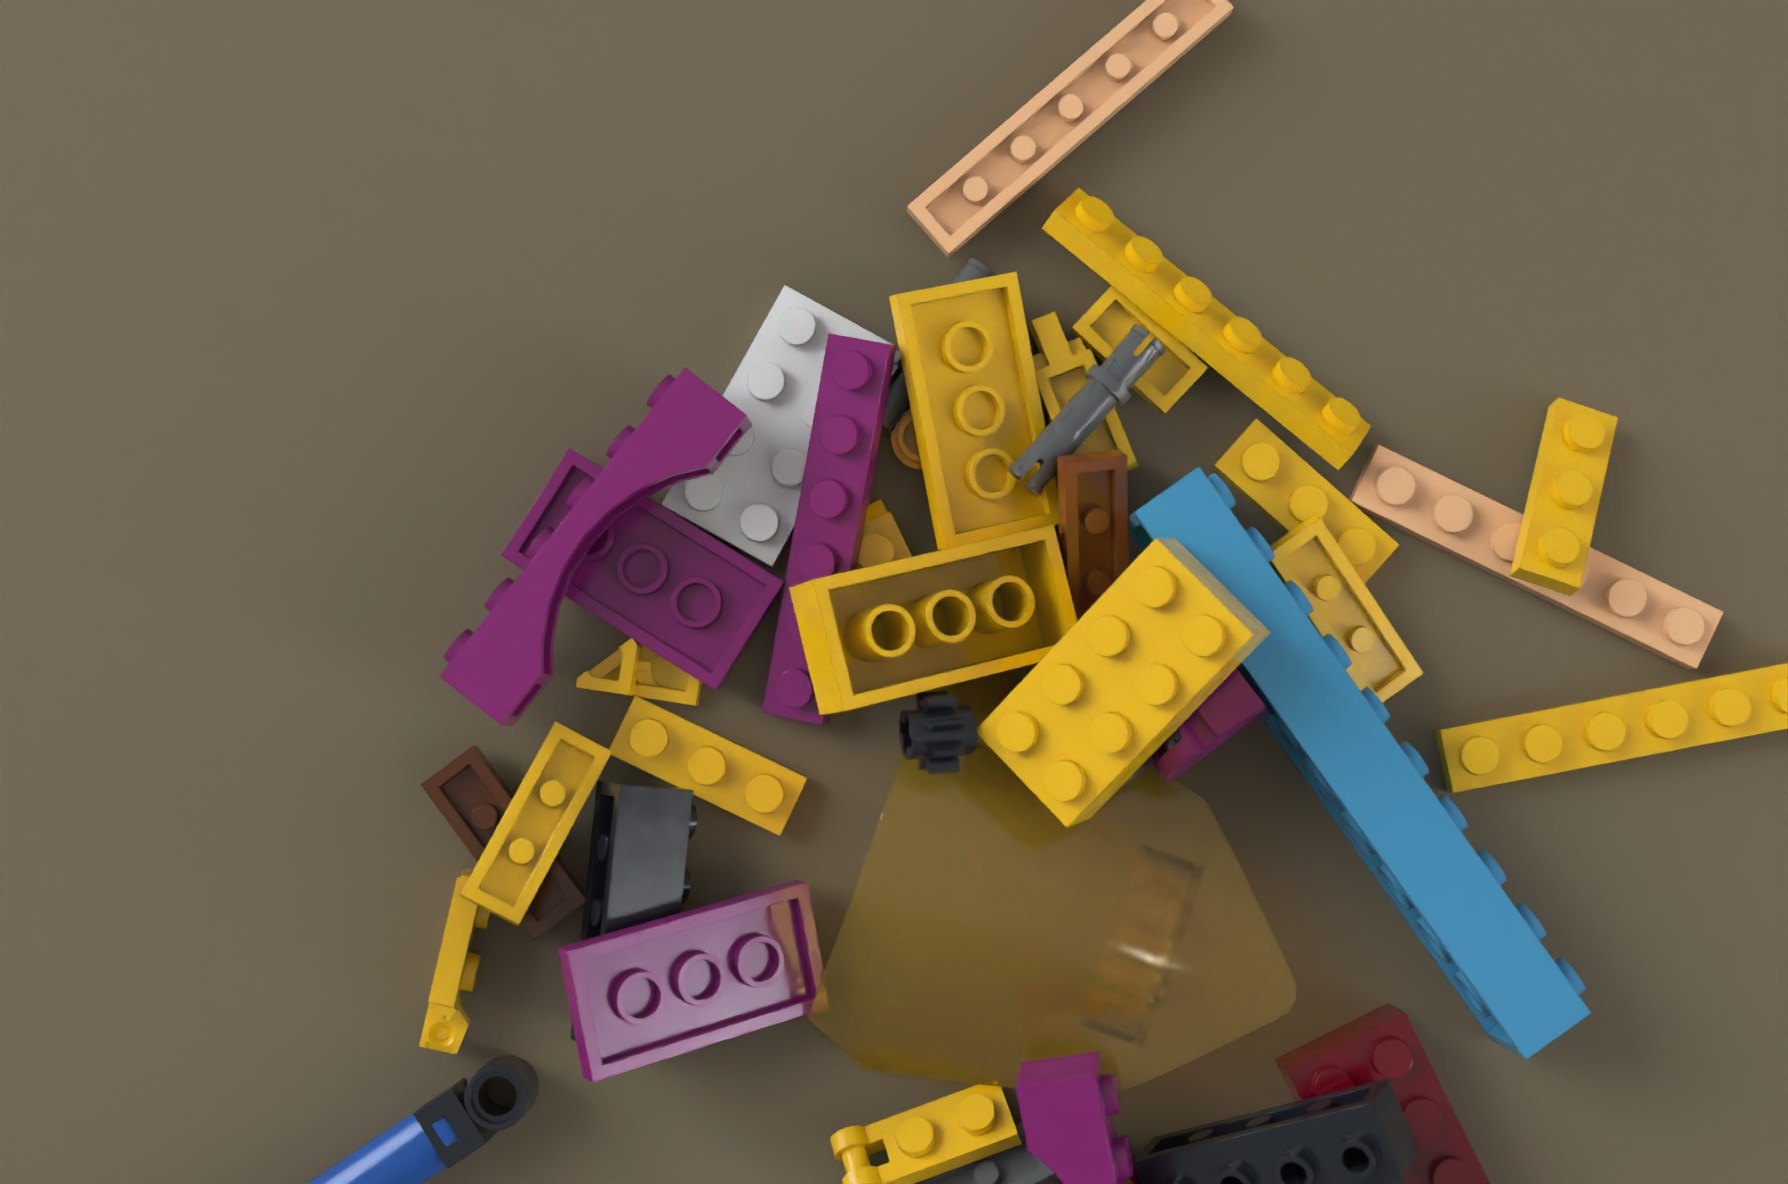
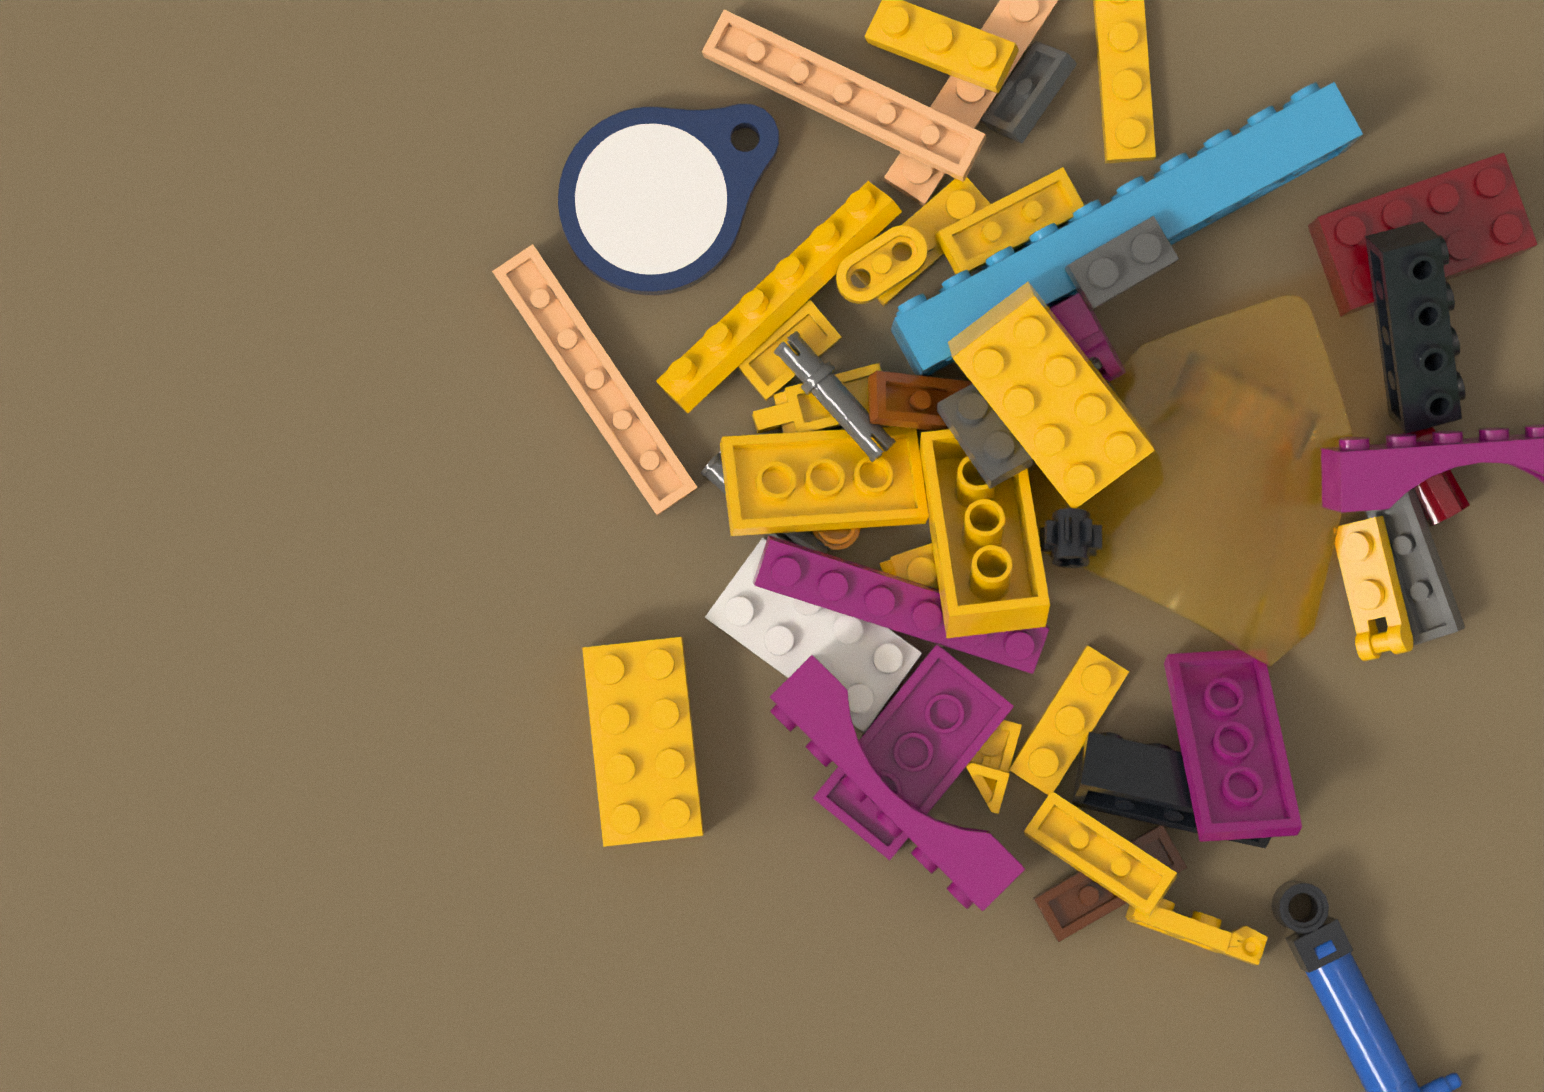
camera: 85 degrees left, 0 degrees up
(614, 224) = (643, 741): none -> yellow brick
(1055, 603) = (983, 436): none -> dark grey plate
(1270, 445) = (881, 265): none -> yellow plate
(1310, 755) = (1121, 263): none -> dark grey plate
(1320, 166) = (662, 193): none -> piece
(1478, 379) = (844, 95): none -> light nougat plate
(1516, 618) = (1029, 91): none -> dark grey plate

